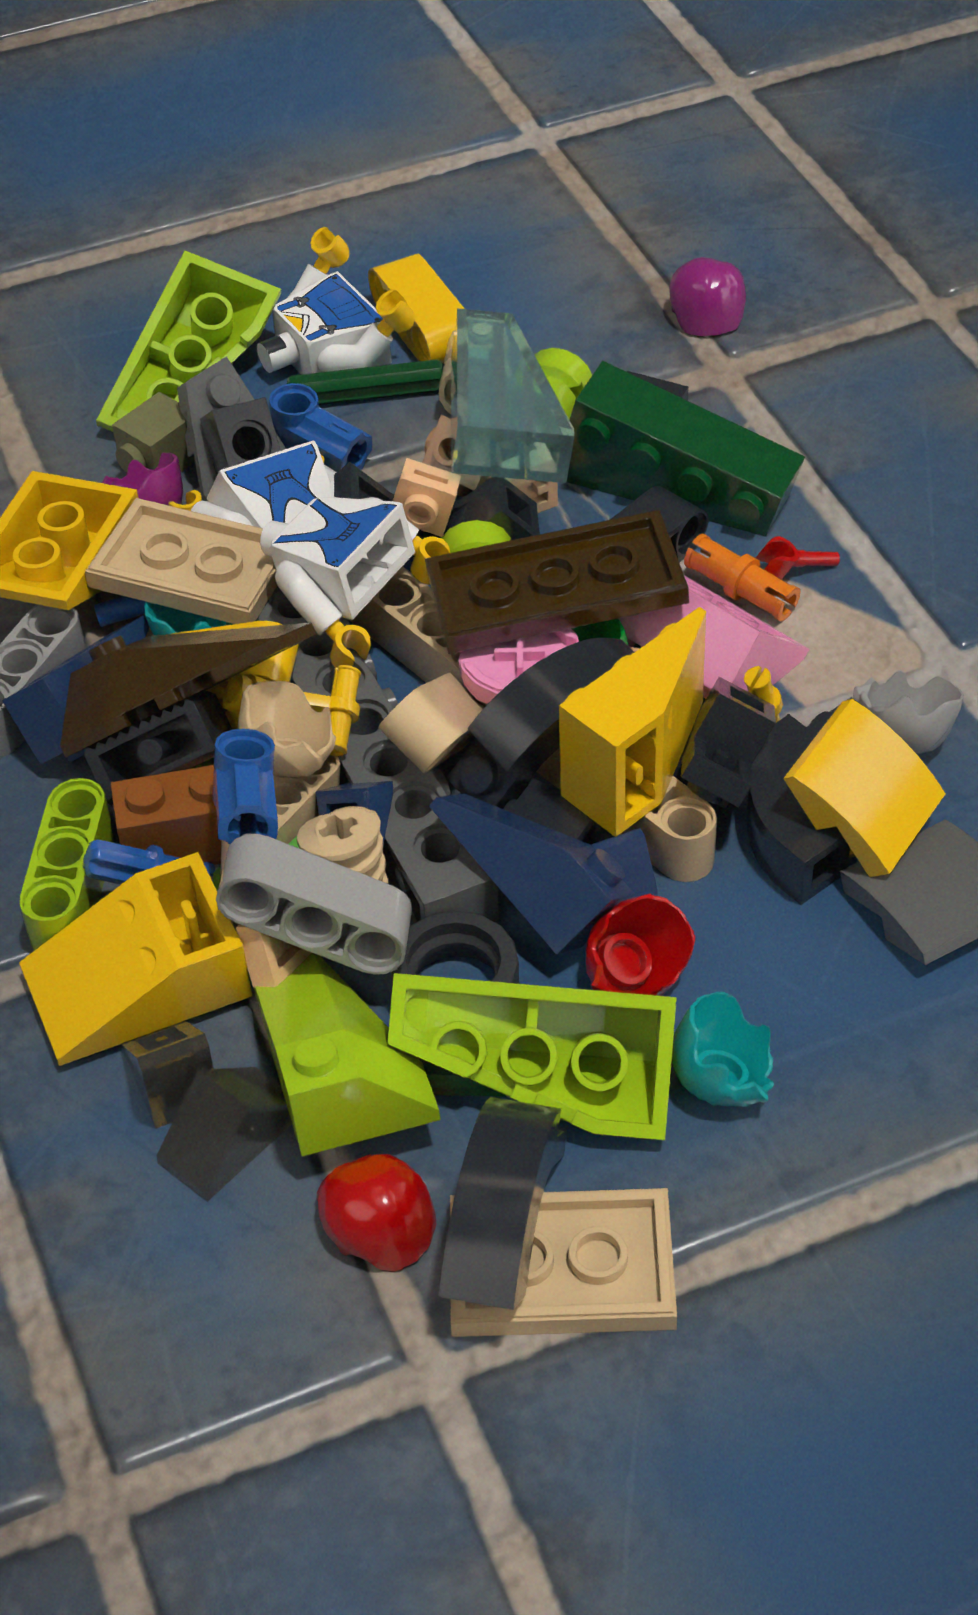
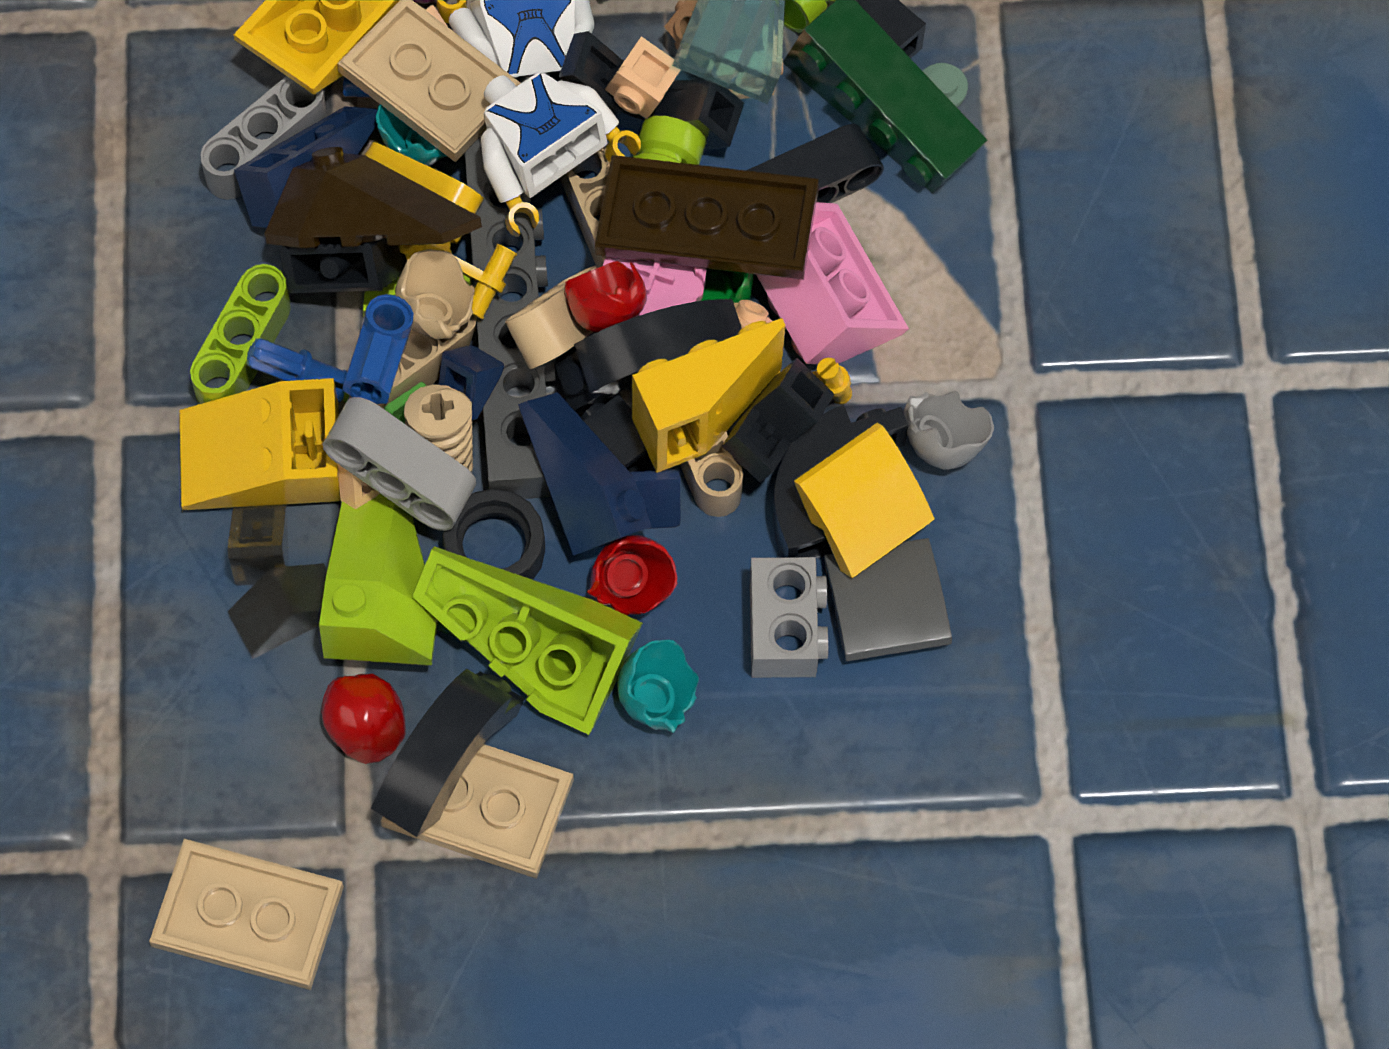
camera: 15 degrees right, 20 degrees up
(169, 812) = (324, 321): dark orange brick -> none
(318, 1503) = (246, 914): none -> tan tile
(483, 670) = (606, 296): none -> red hair
(742, 577) = (884, 238): orange pin -> none
(783, 555) = (934, 231): red hand -> none
(833, 942) = (776, 617): none -> light grey brick

